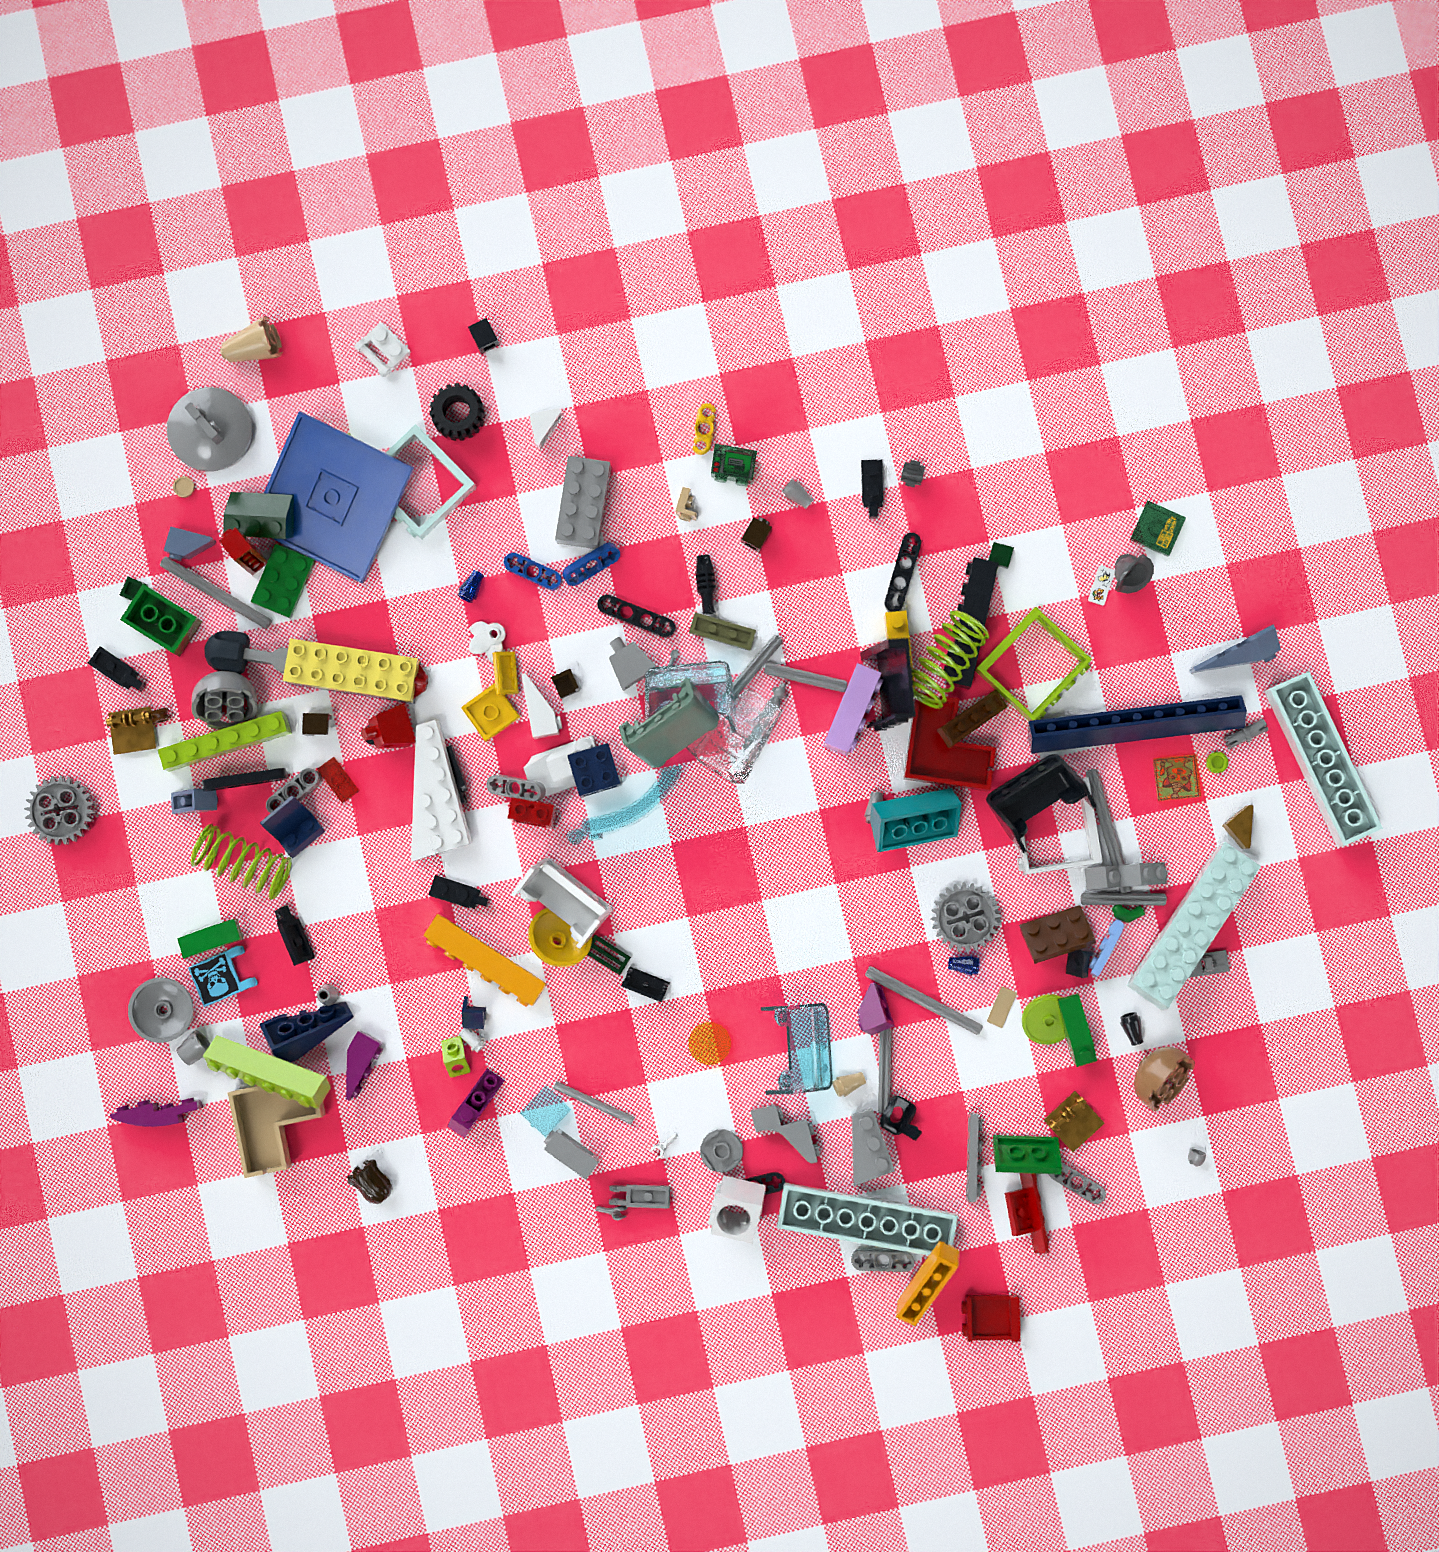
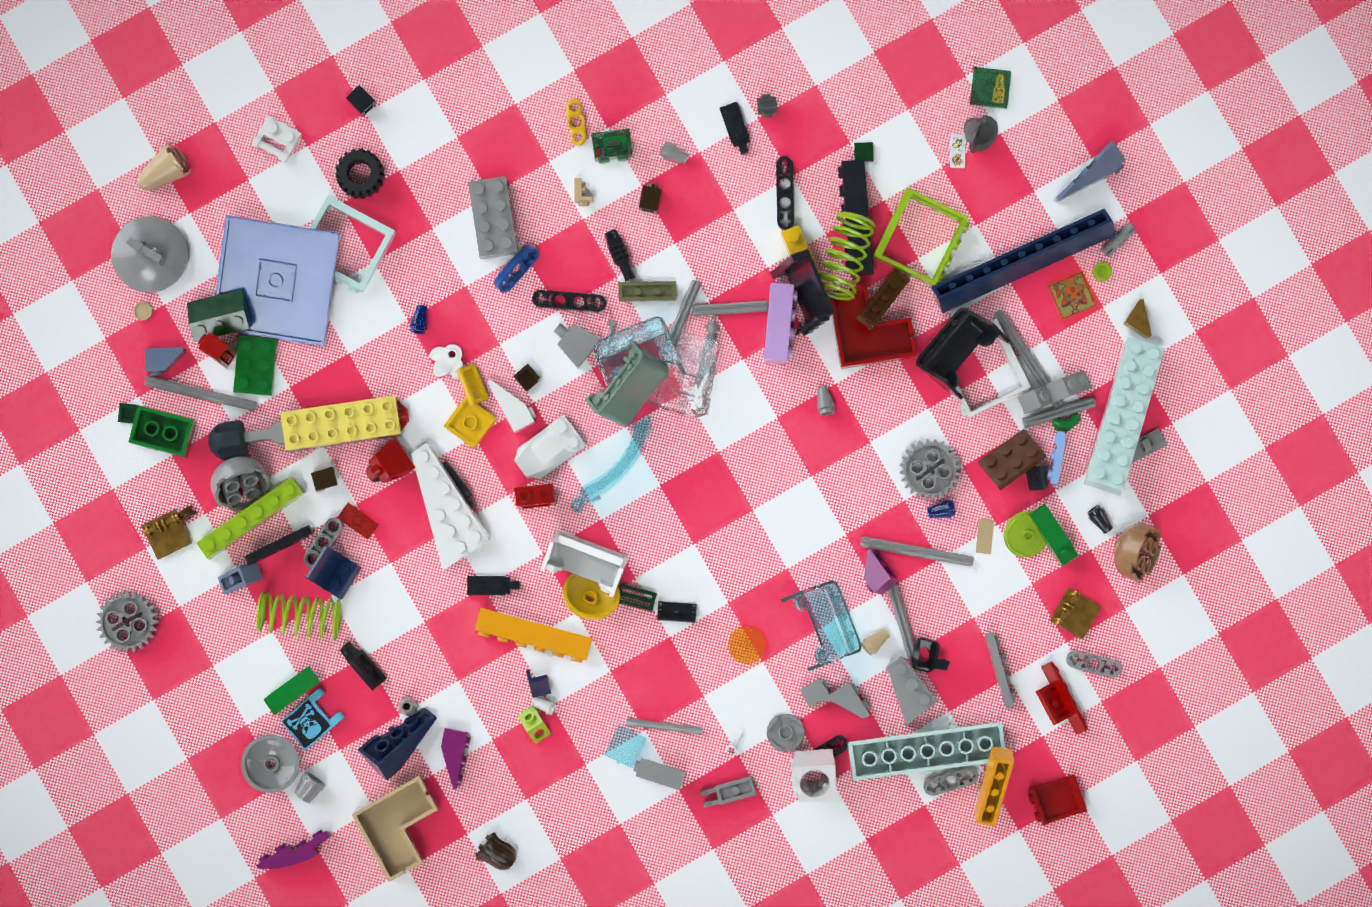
camera: 25 degrees left, 0 degrees up
(115, 669) = (135, 486): black hinge -> none
(267, 1072) = (379, 786): lime brick -> none
(475, 1103) = (564, 758): magenta slope -> none
(516, 570) = (452, 294): blue beam -> none
(523, 783) = (506, 485): light grey beam -> none
(543, 424) = (437, 160): white slope -> none
(594, 770) = (575, 443): dark blue bracket -> none
(615, 1212) = (712, 813): light grey hand -> none
(915, 819) = (861, 400): teal slope -> none
(1026, 1154) = (1044, 653): green plate -> none
(1196, 1157) = (1187, 610): light grey hinge -> none
(1323, 759) = (1190, 241): light aqua brick -> none

